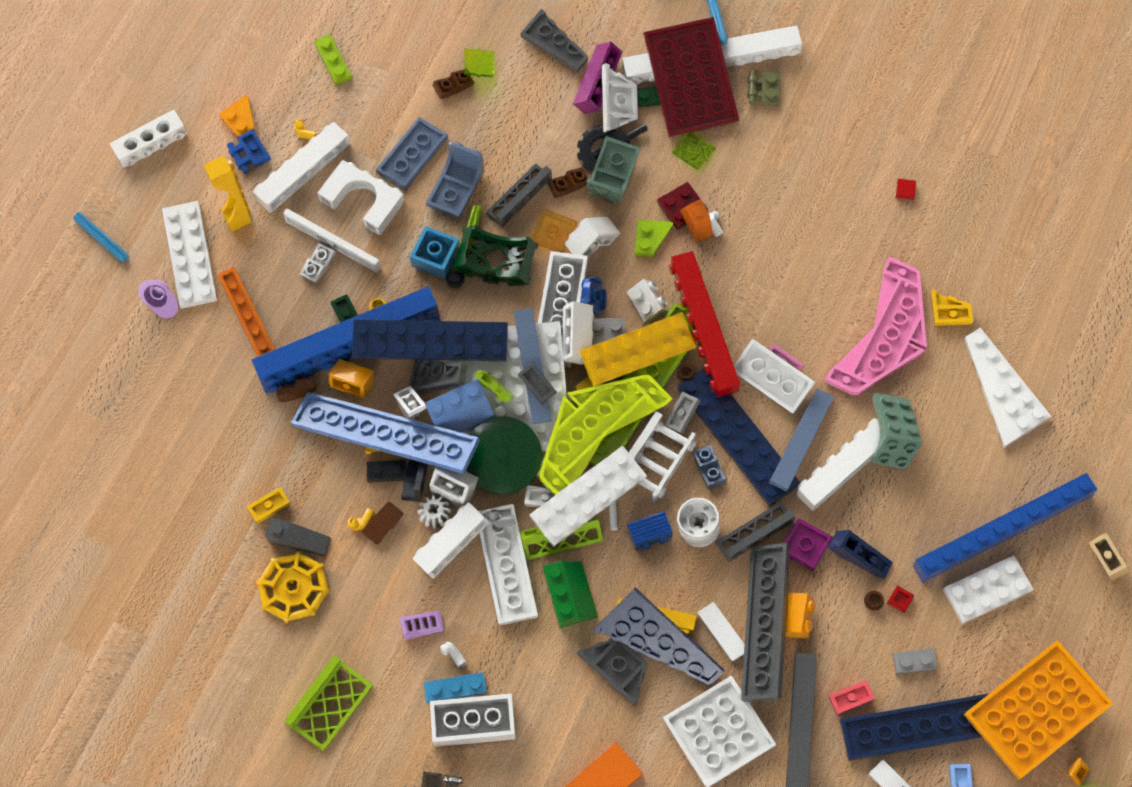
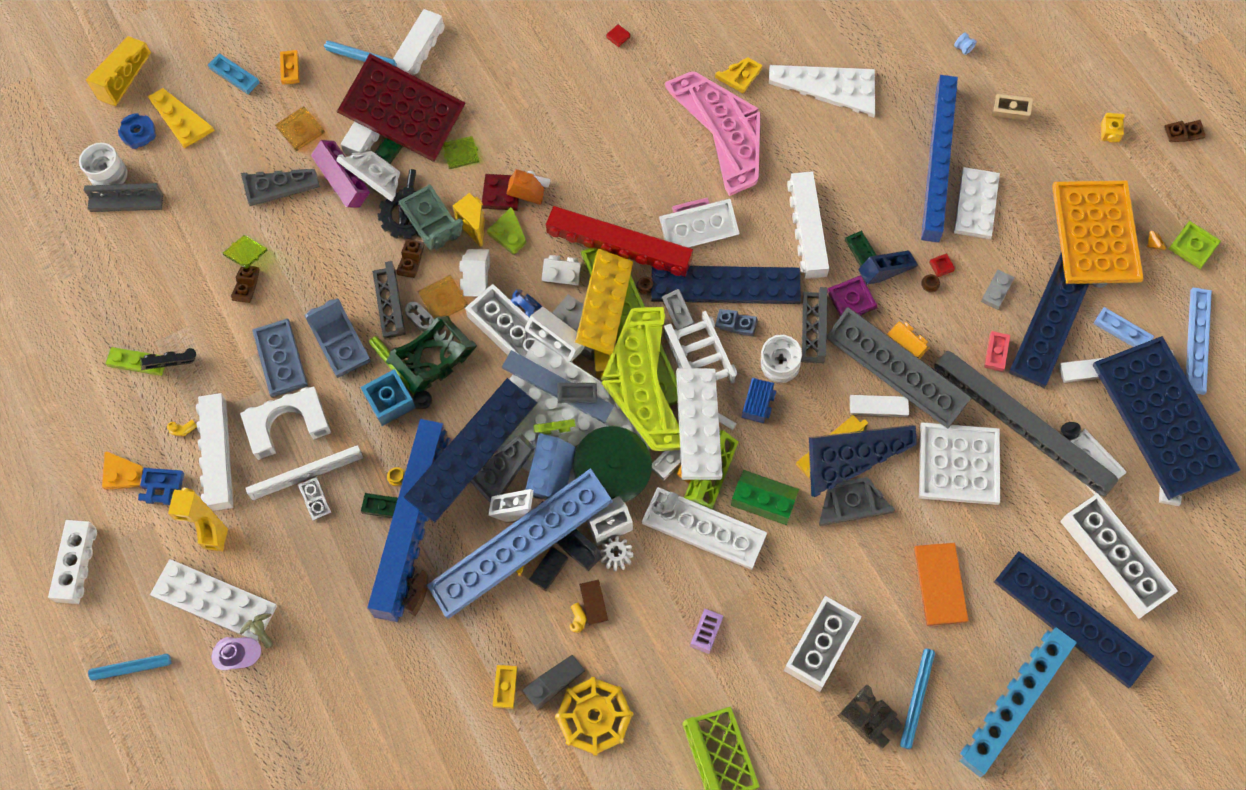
camera: 55 degrees left, 0 degrees up
(184, 299) = (257, 628): none -> olive plant
(245, 311) = (313, 588): orange plate -> none
(348, 79) = (169, 359): none -> black plate
(351, 378) = (446, 540): light orange brick -> none
(449, 648) = (746, 621): white arm -> none
(450, 540) = (653, 556): white brick -> none
(455, 687) = (780, 641): dark azure plate -> none
(519, 225) = (422, 314): none -> light grey beam
(616, 20) = (299, 128): none -> clear yellow plate
(636, 200) = (472, 215): none -> yellow slope
(769, 85) = (454, 64): olive plate -> none
(801, 440) = (766, 242): sand blue tile -> none
(861, 519) = (860, 247): none -> dark green plate
(898, 431) = (818, 170): sand green bracket -> none

